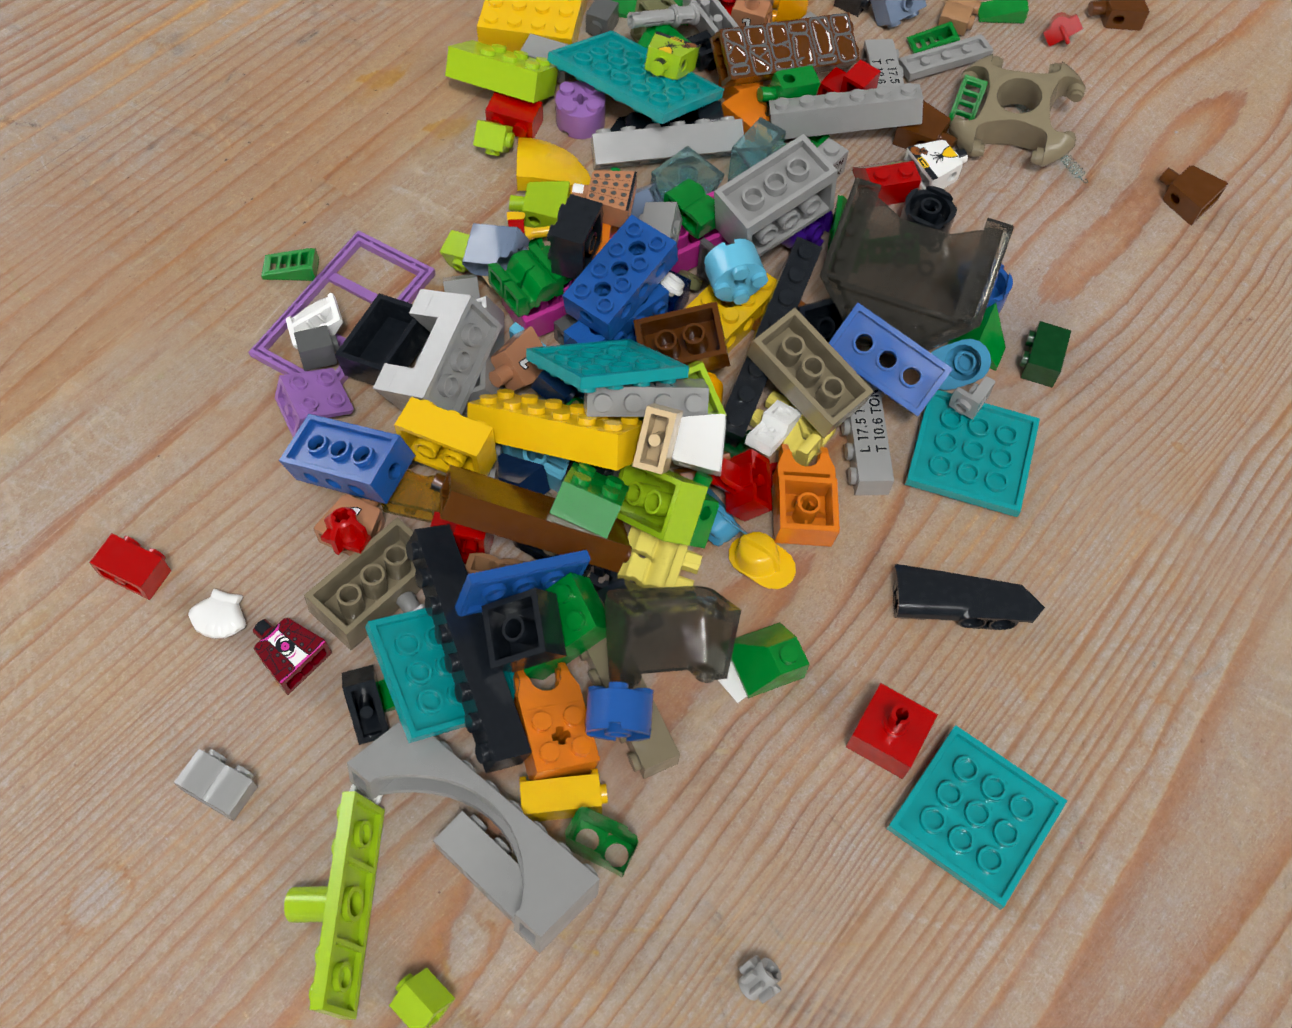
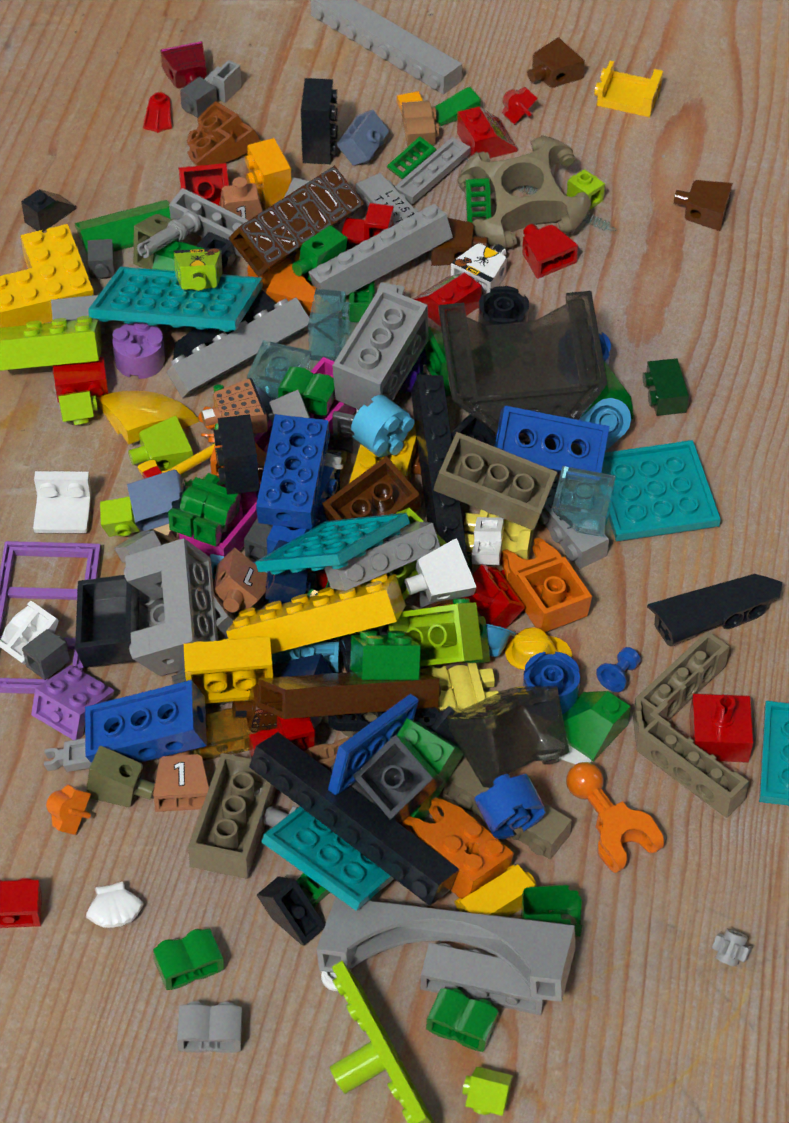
camera: 25 degrees left, 10 degrees down
(239, 502) = (68, 808): none -> orange piece
(243, 703) = (188, 958): none -> green brick
(272, 451) = (70, 757): none -> light grey plate
(289, 651) = (196, 901): dark red torso -> none
(294, 493) = (117, 779): none -> olive torso
(345, 531) = (188, 781): red piece -> none
(426, 217) = (62, 502): none -> white bracket
(449, 906) = (462, 1019): none -> green brick
(657, 438) = (416, 580): tan brick -> none
(725, 776) = (614, 822): none -> orange piece
(756, 595) = (557, 671): none -> blue brick
(817, 621) = (613, 675): none -> blue piece
(821, 723) = (670, 749): none -> dark tan brick
(888, 431) = (584, 499): none -> clear light blue slope
(971, 402) = (630, 451): light grey bracket -> none
(1009, 173) = (548, 249): none -> red torso
(1015, 42) = (484, 133): none -> red slope
(1084, 129) = (587, 183): none -> lime brick
(1176, 58) = (628, 91): none -> yellow panel

